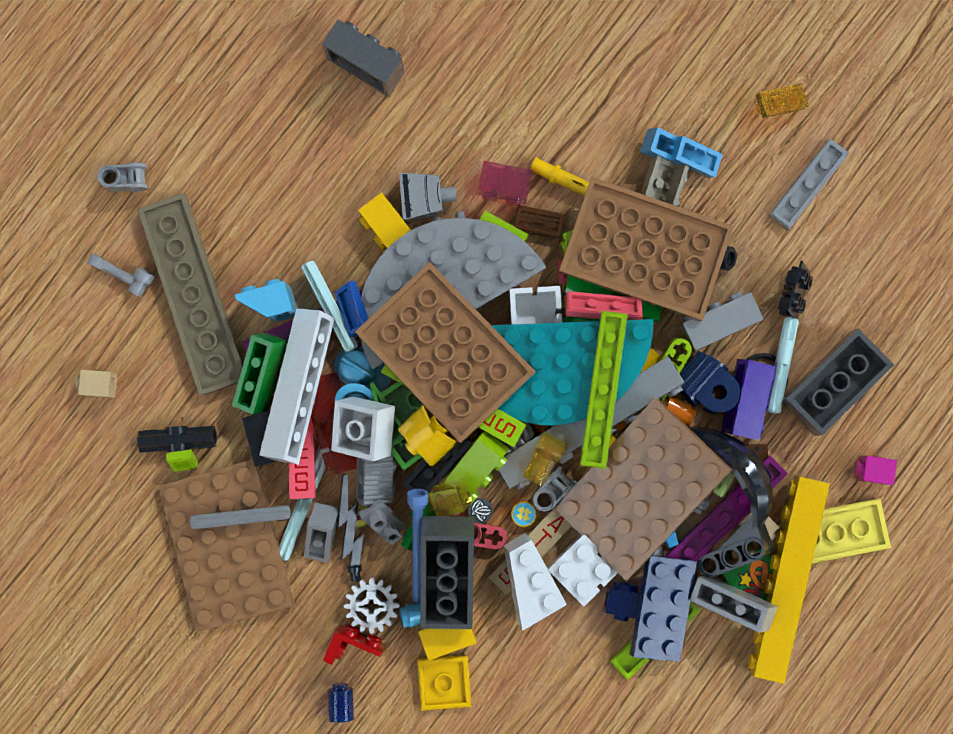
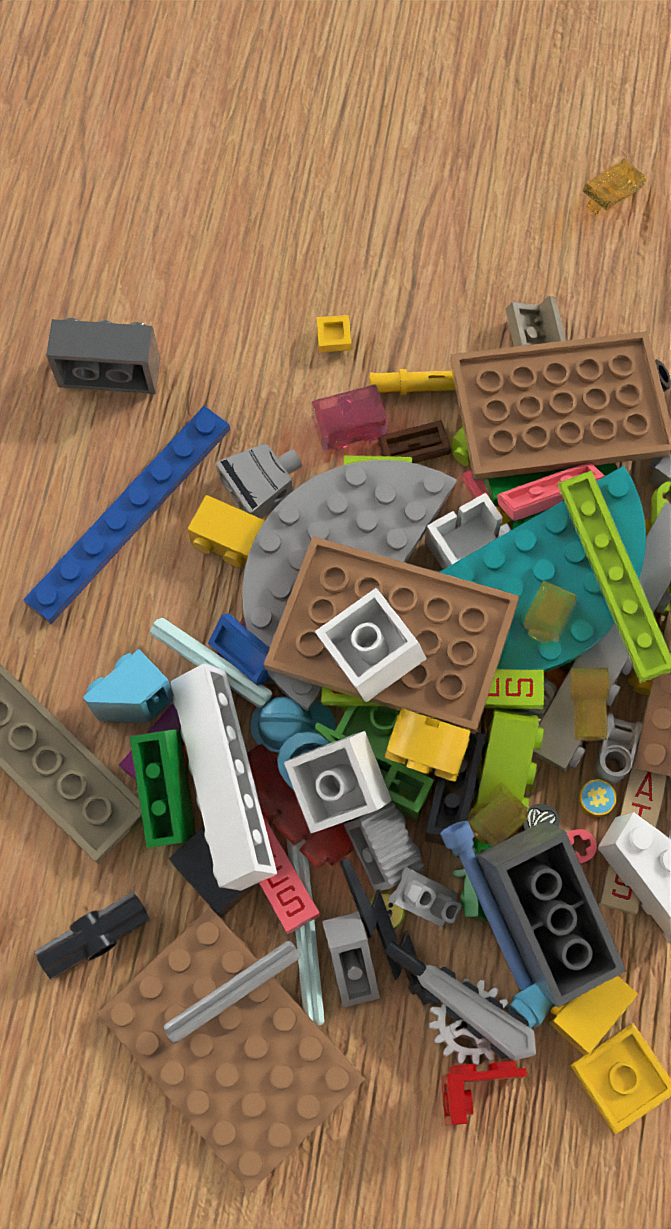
camera: 30 degrees left, 15 degrees down
(182, 460) = (113, 960): lime tile -> none
(329, 175) = (126, 515): none -> blue plate
(340, 703) = (502, 1184): clear blue brick -> none
(378, 609) = (485, 1017): none -> light grey sword
(421, 358) = (371, 644): none -> white brick
(527, 115) = (333, 333): none -> yellow plate
(547, 392) = (549, 612): none -> clear yellow brick
(681, 151) = (534, 287): dark azure slope -> none

